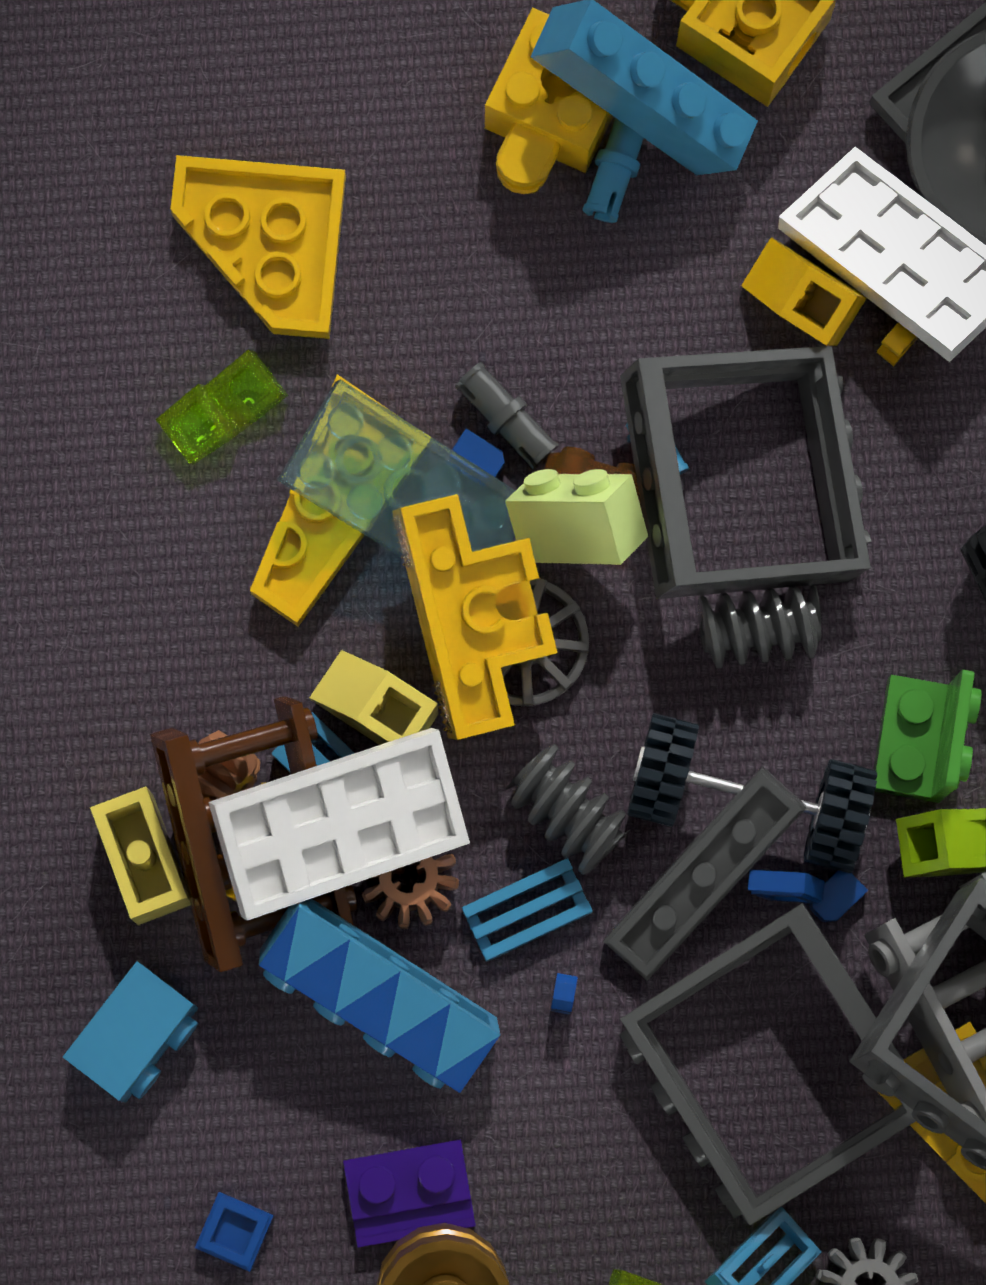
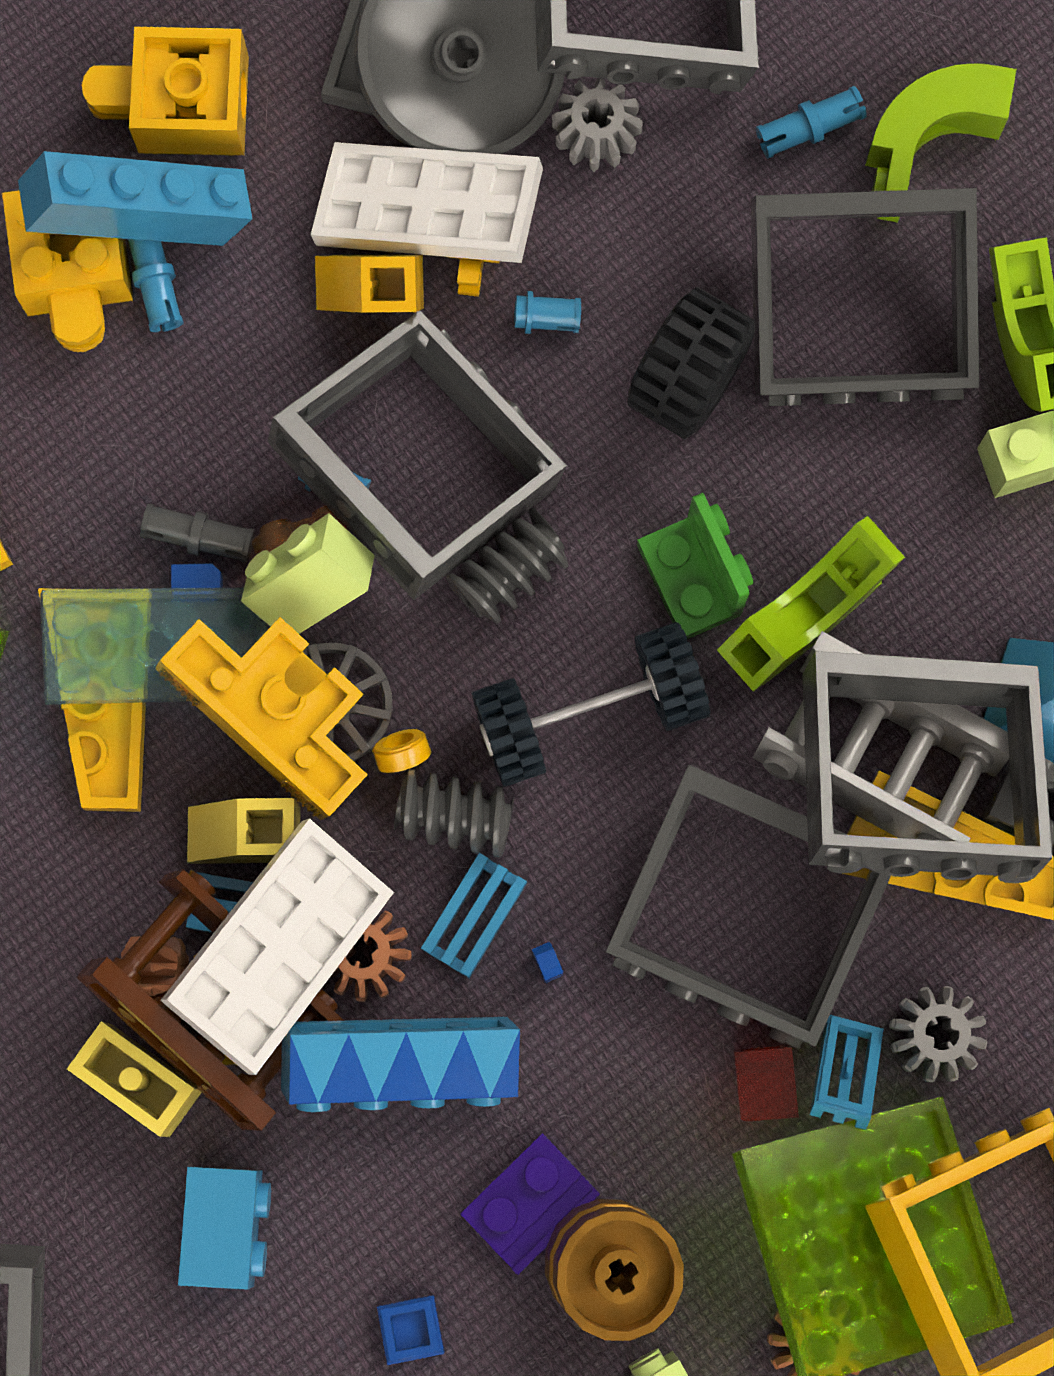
camera: 30 degrees left, 0 degrees up
(558, 724) = (401, 751): none -> yellow tile
(684, 1228) = (766, 1083): none -> clear red panel
(704, 873) = (595, 792): dark grey tile -> none
(786, 886) = (666, 760): blue tile -> none
(839, 895) = (710, 742): blue piece -> none
(944, 421) = (547, 313): none -> dark azure pin

